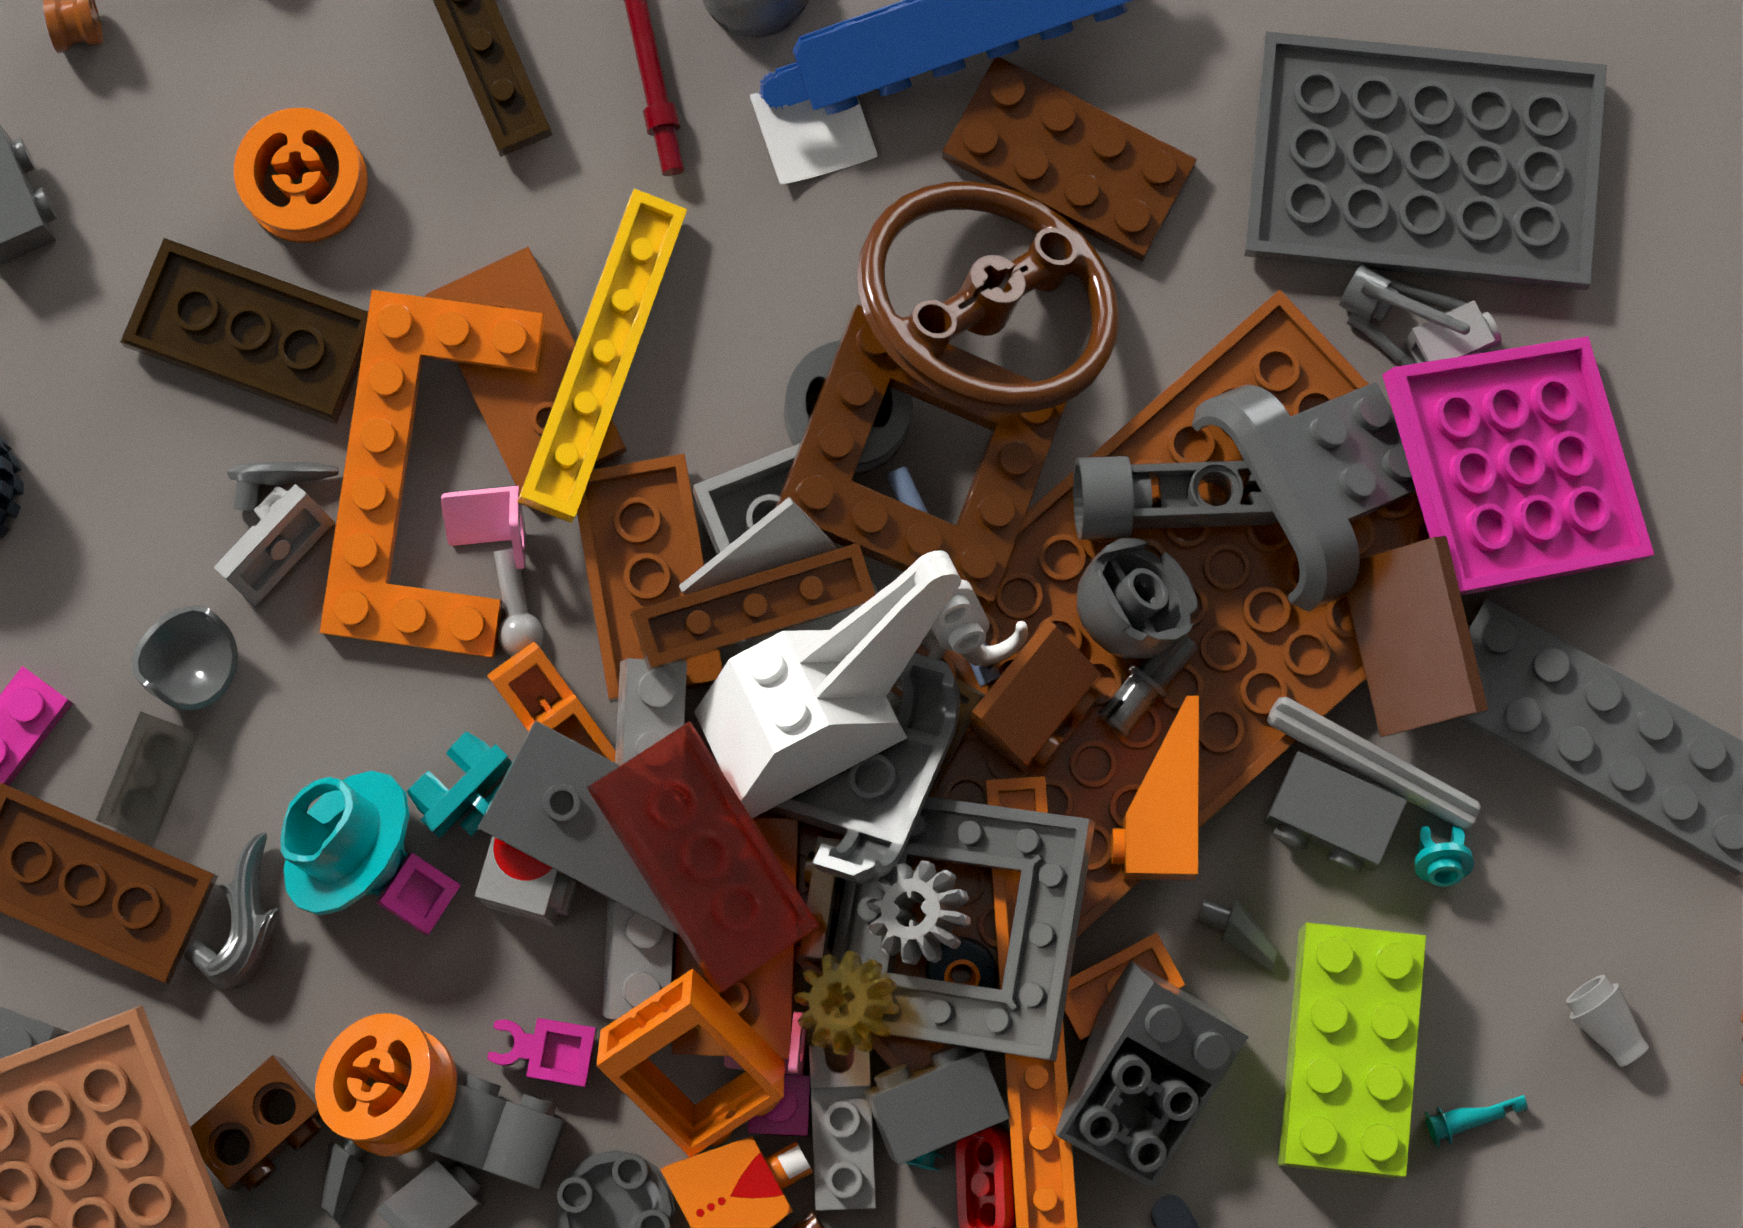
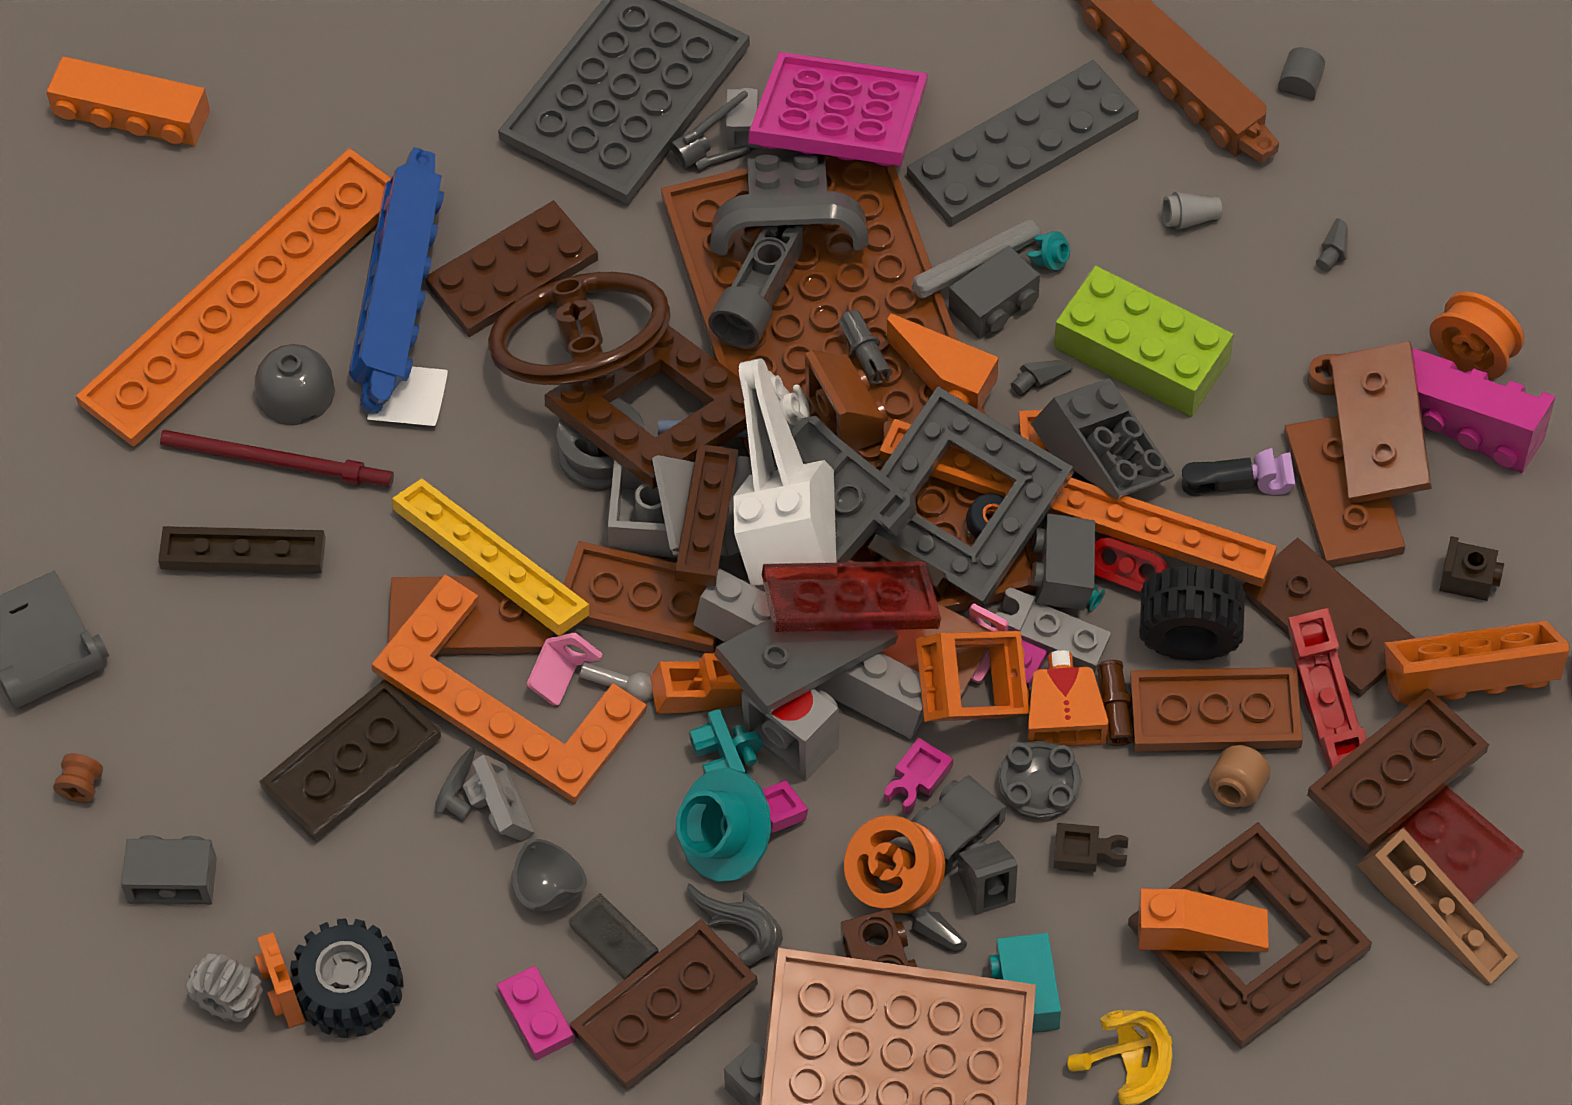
camera: 65 degrees left, 20 degrees down
(288, 143) = (283, 701): orange wheel -> none
(829, 995) = (993, 578): clear yellow gear -> none
(937, 902) = (958, 492): light grey gear -> none
(1135, 600) = (814, 324): dark grey cylinder -> none
(1415, 638) = (916, 194): reddish brown tile -> none
(1463, 1119) = (1212, 306): teal piece -> none

